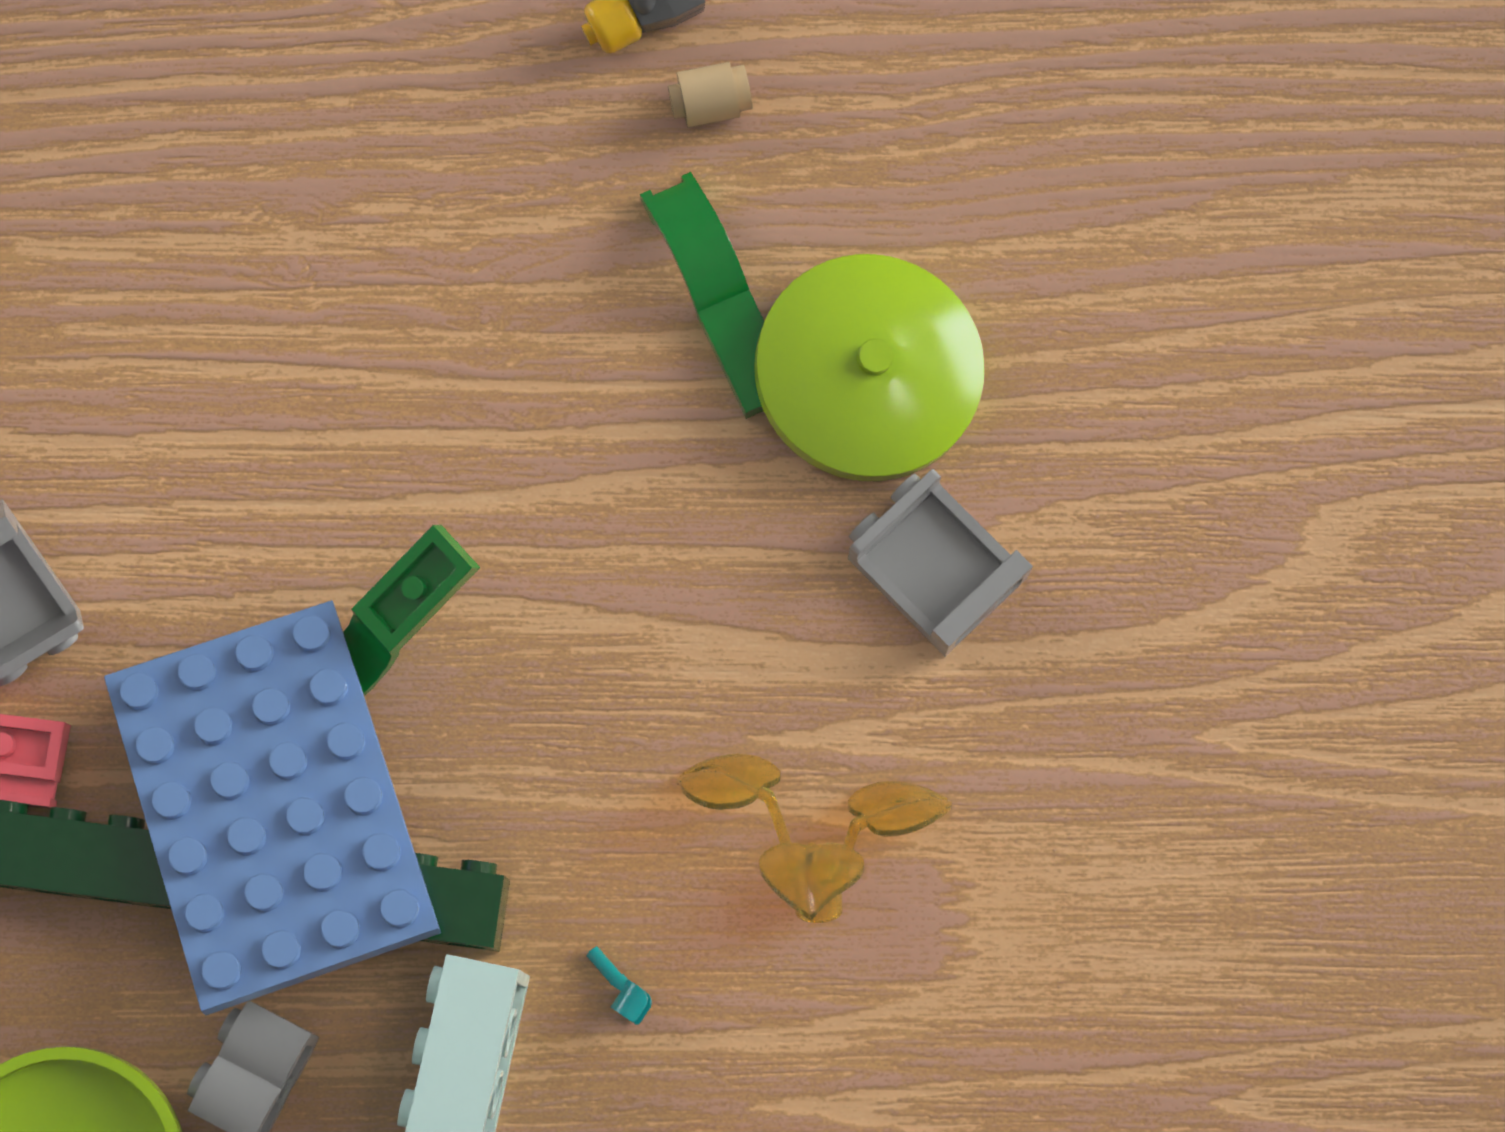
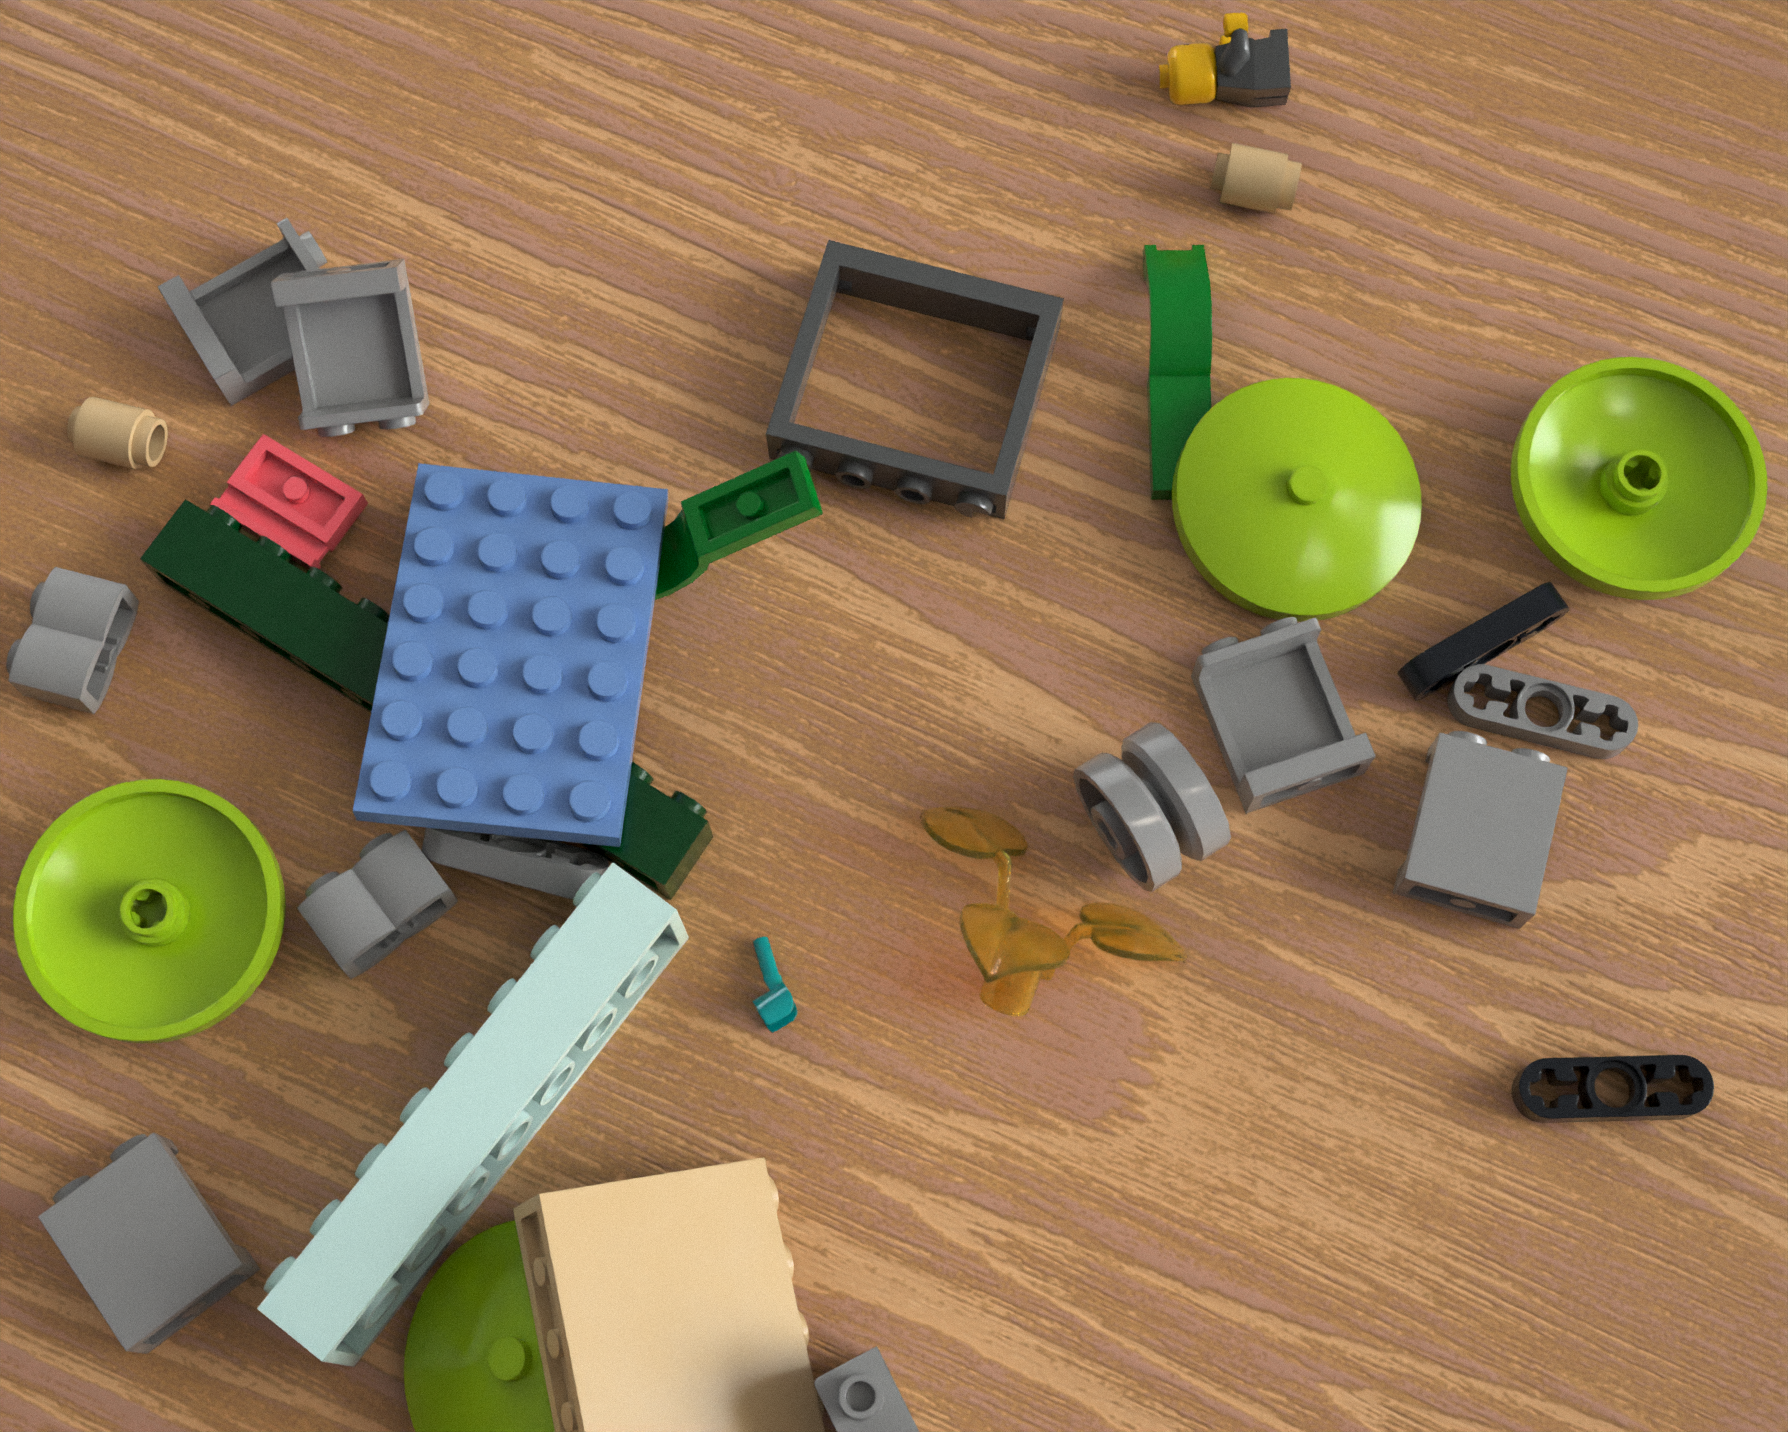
camera: 25 degrees right, 5 degrees down
(376, 979) = (517, 860): none -> light grey beam
(485, 318) = (936, 294): none -> dark grey window
(869, 693) = (1152, 806): none -> light grey wheel
(1076, 423) = (1483, 640): none -> black beam
(1144, 226) = (1638, 478): none -> lime dish
(1144, 584) = (1482, 829): none -> light grey panel
(1193, 467) = (1585, 737): none -> light grey beam
(1368, 721) = (1658, 1067): none -> black beam

